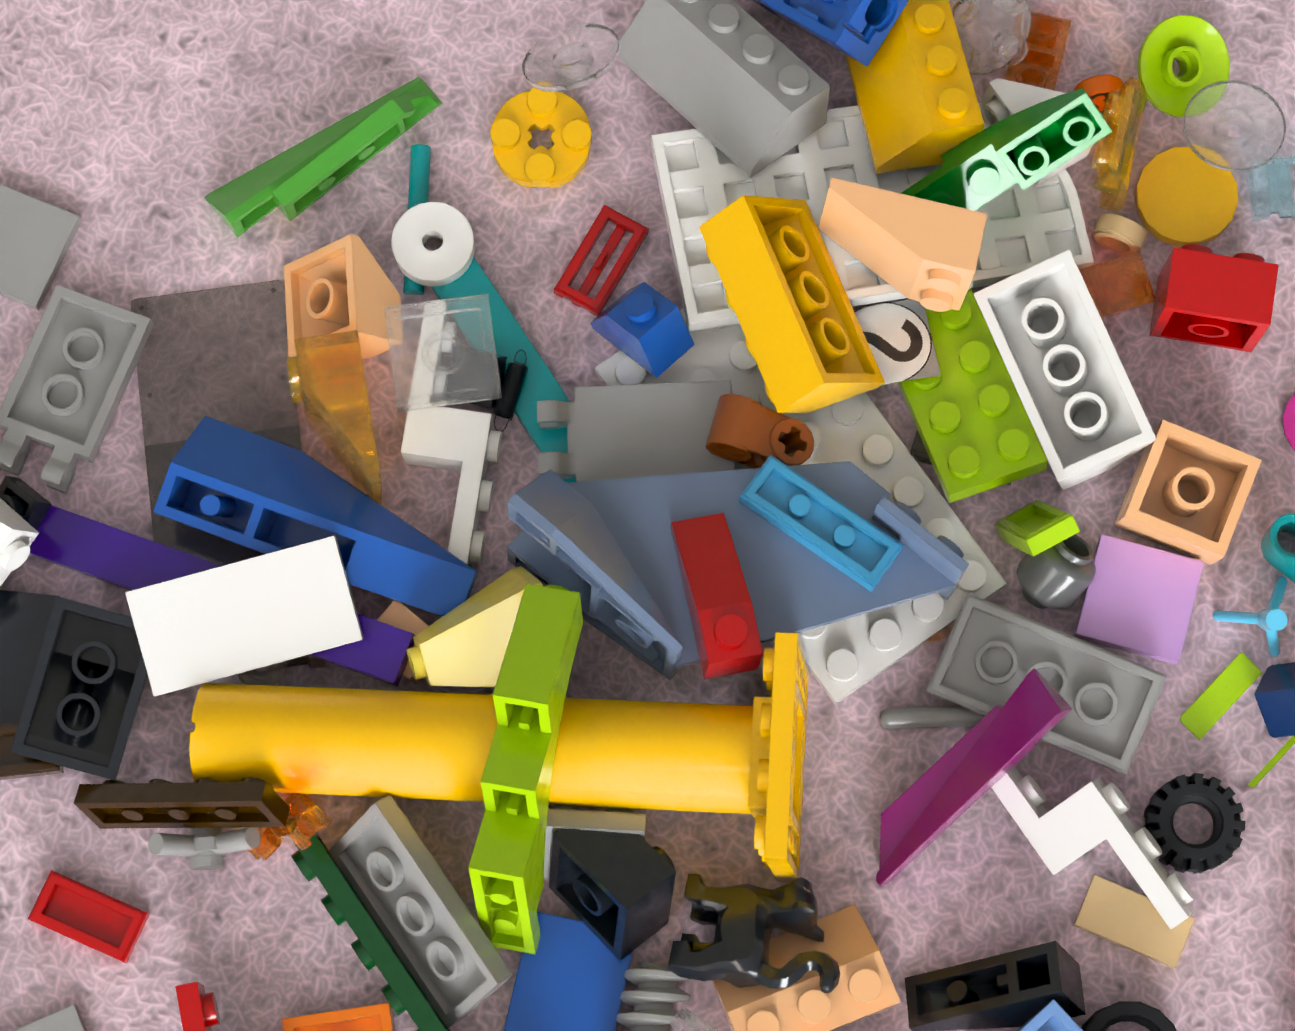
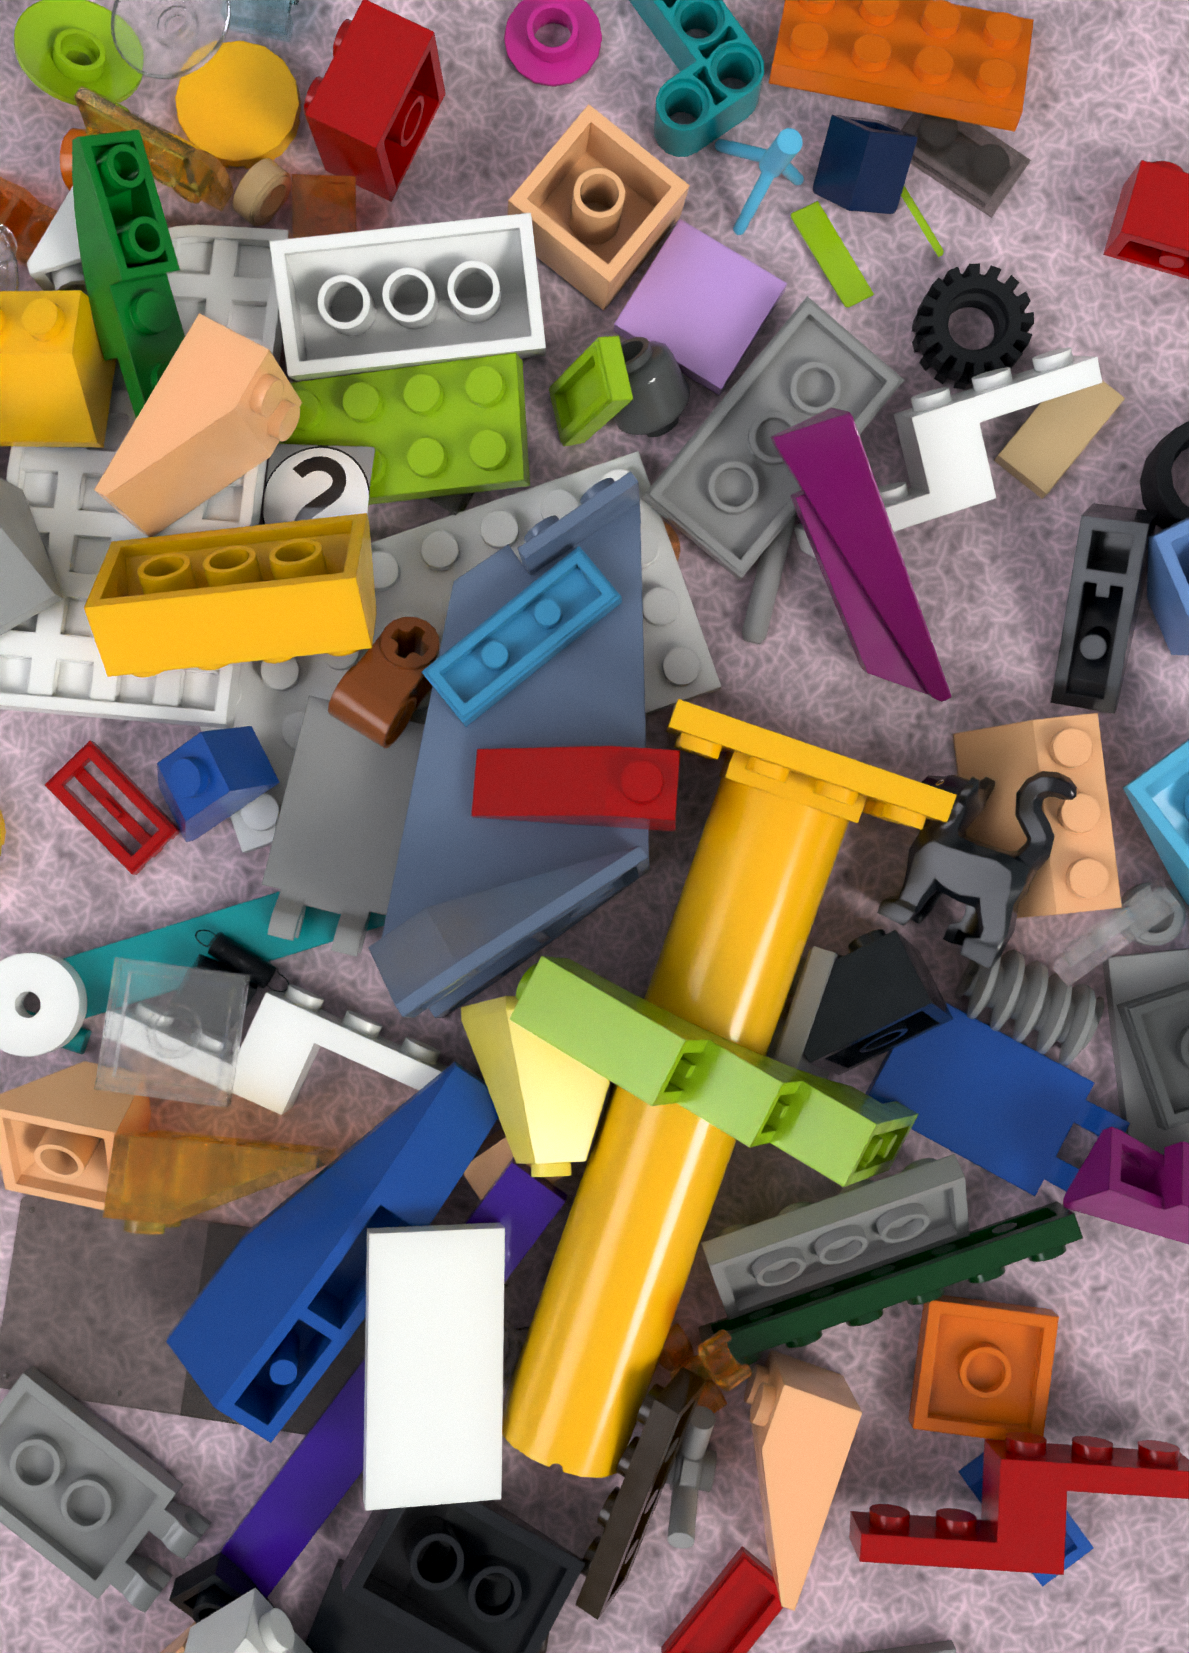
camera: 75 degrees left, 10 degrees up
(244, 918) = (801, 1440): none -> light nougat slope

